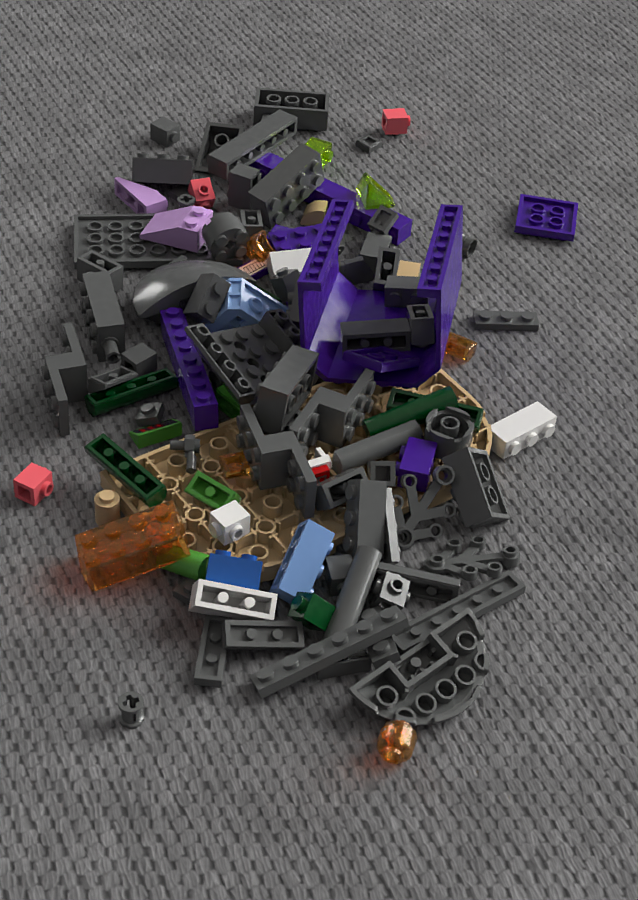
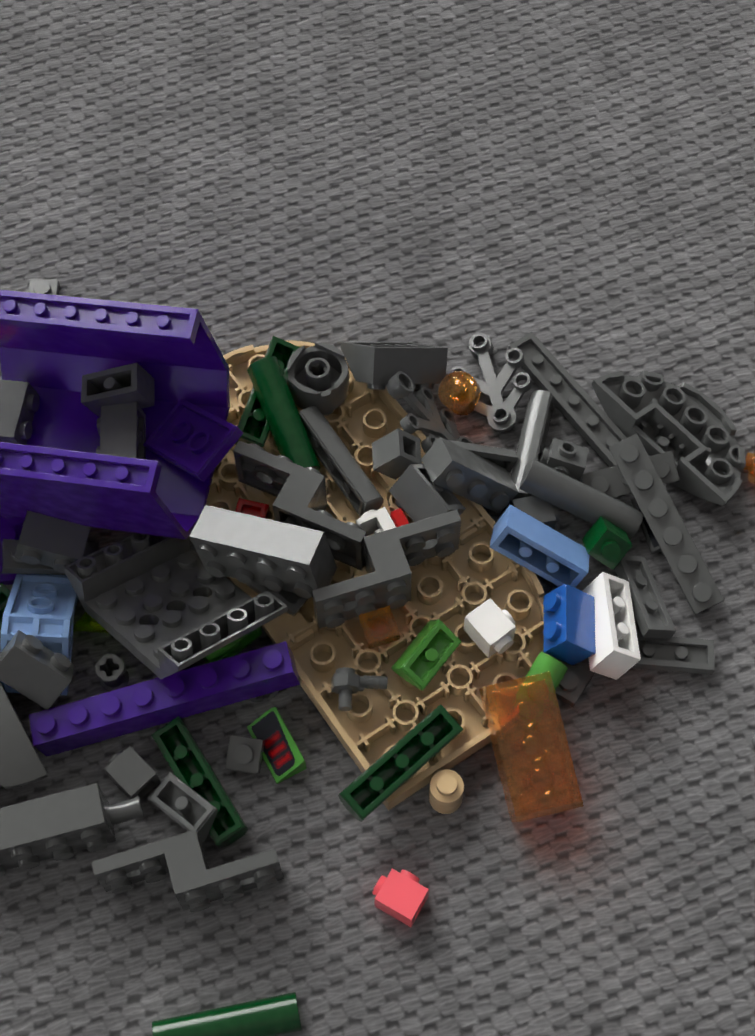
camera: 85 degrees left, 20 degrees up
(417, 459) = (366, 416): dark purple brick -> none
(455, 532) = (459, 392): none -> clear orange piece
(522, 429) = (266, 310): white brick -> none

